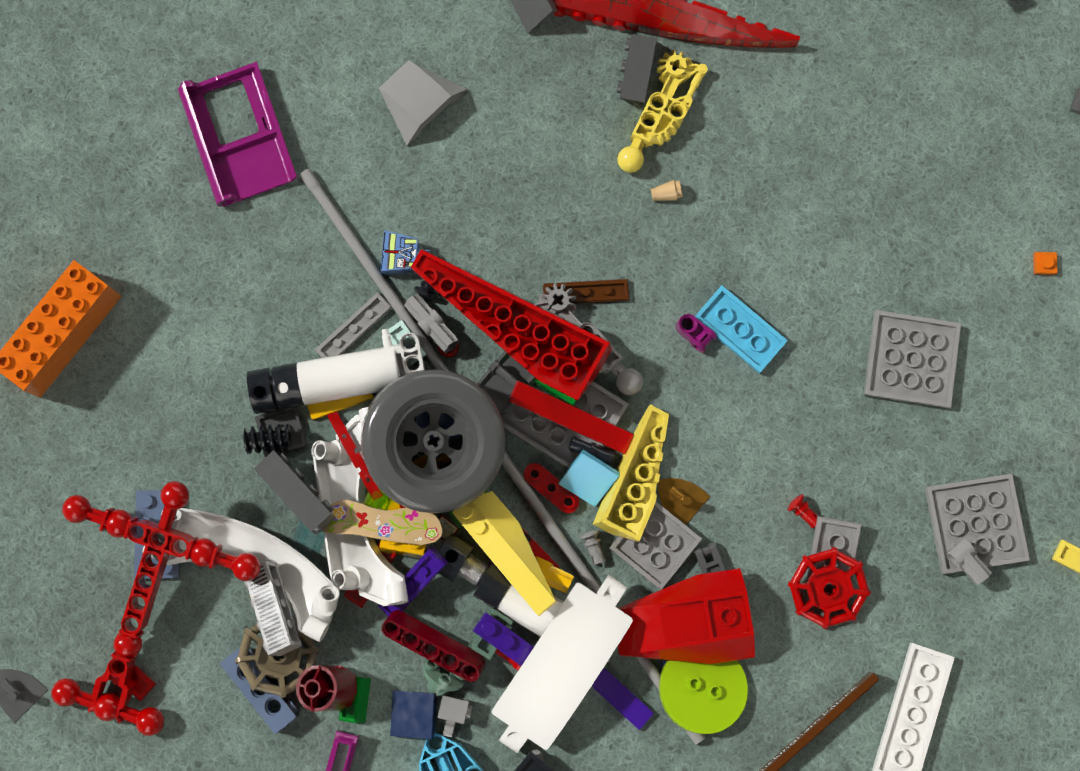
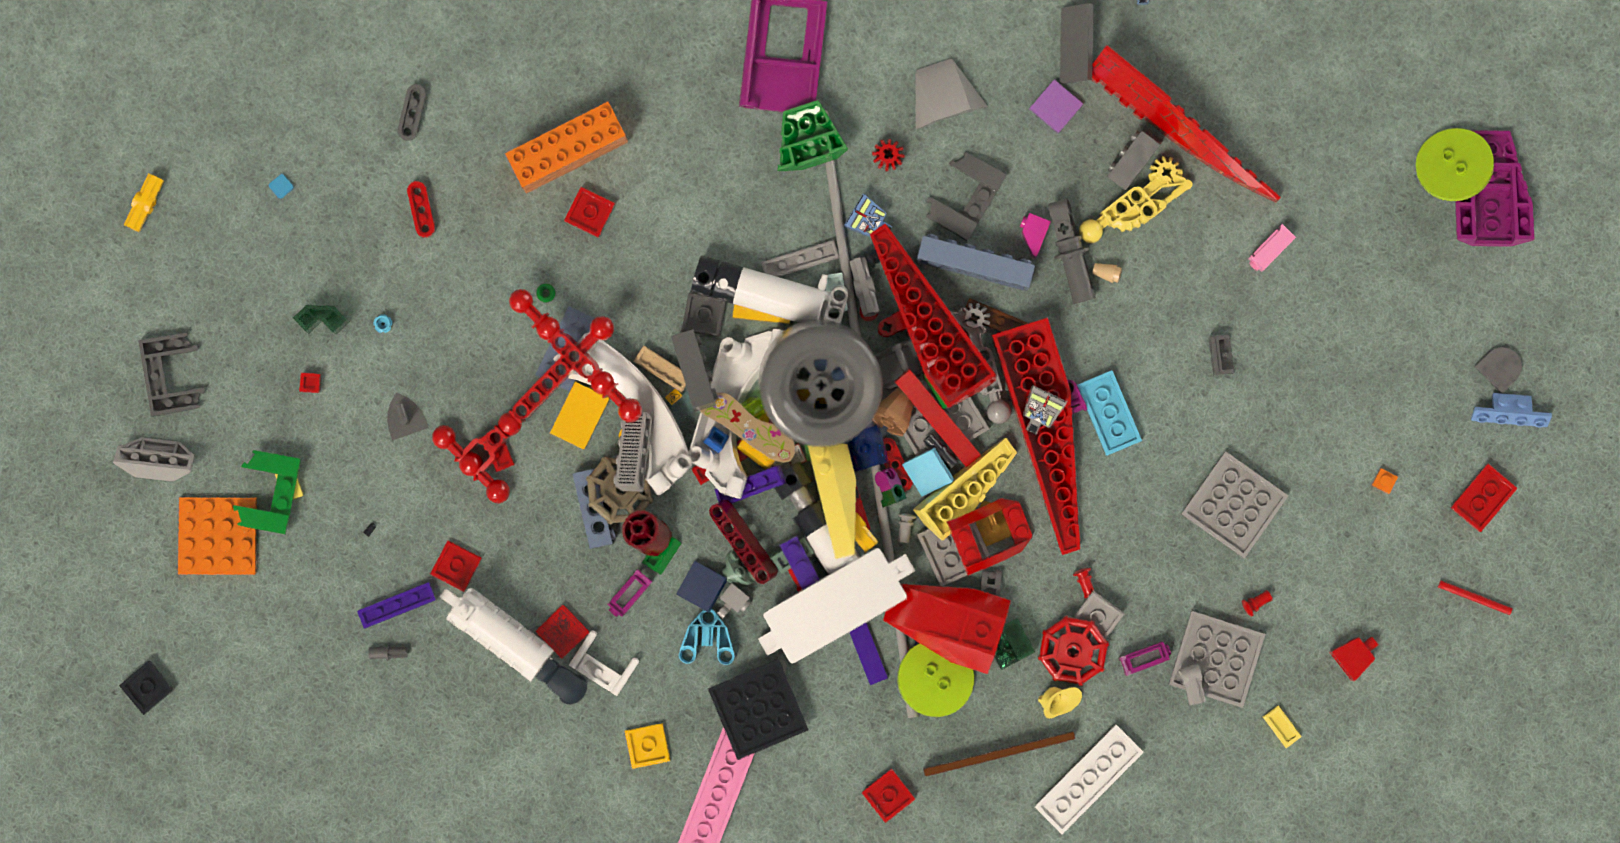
camera: 30 degrees right, 5 degrees up
(100, 488) = (541, 288): none -> green plate
(113, 385) = (589, 212): none -> red plate
(200, 599) = (579, 416): none -> yellow tile
(261, 507) = (660, 368): none -> tan plate
(267, 439) = (691, 316): black piece -> none
(290, 530) = (673, 396): none -> yellow sticker
(303, 203) = (808, 138): none -> green wedge
(349, 446) = (752, 353): red piece -> none
(353, 552) = (716, 439): none -> blue brick
(389, 190) = (881, 155): none -> red gear
(482, 344) = (895, 321): none -> red piece
(500, 213) = (965, 223): none -> dark grey wedge
(515, 485) = (867, 449): none -> clear blue plate
(525, 434) = (894, 413): none -> medium nougat cone
(532, 244) = (975, 263): none -> sand blue brick
(534, 57) = (1056, 106): none -> medium lavender tile
(557, 512) = (890, 487): none -> leg
(575, 188) = (1034, 232): none -> dark pink slope
(622, 188) = (1071, 252): none -> dark grey piece
(663, 530) = (966, 543): none -> red wedge
(673, 355) = (1042, 409): none -> torso
(677, 362) = (1032, 359): none -> red wedge
(767, 613) = (1013, 645): none -> clear green slope
(815, 91) = (1271, 248): none -> bright pink window
(820, 218) = (1221, 355): none -> dark grey hinge
(841, 648) = (1059, 701): none -> light yellow piece
(905, 558) = (1145, 658): none -> magenta window
(984, 448) = (1255, 603): none -> red pin

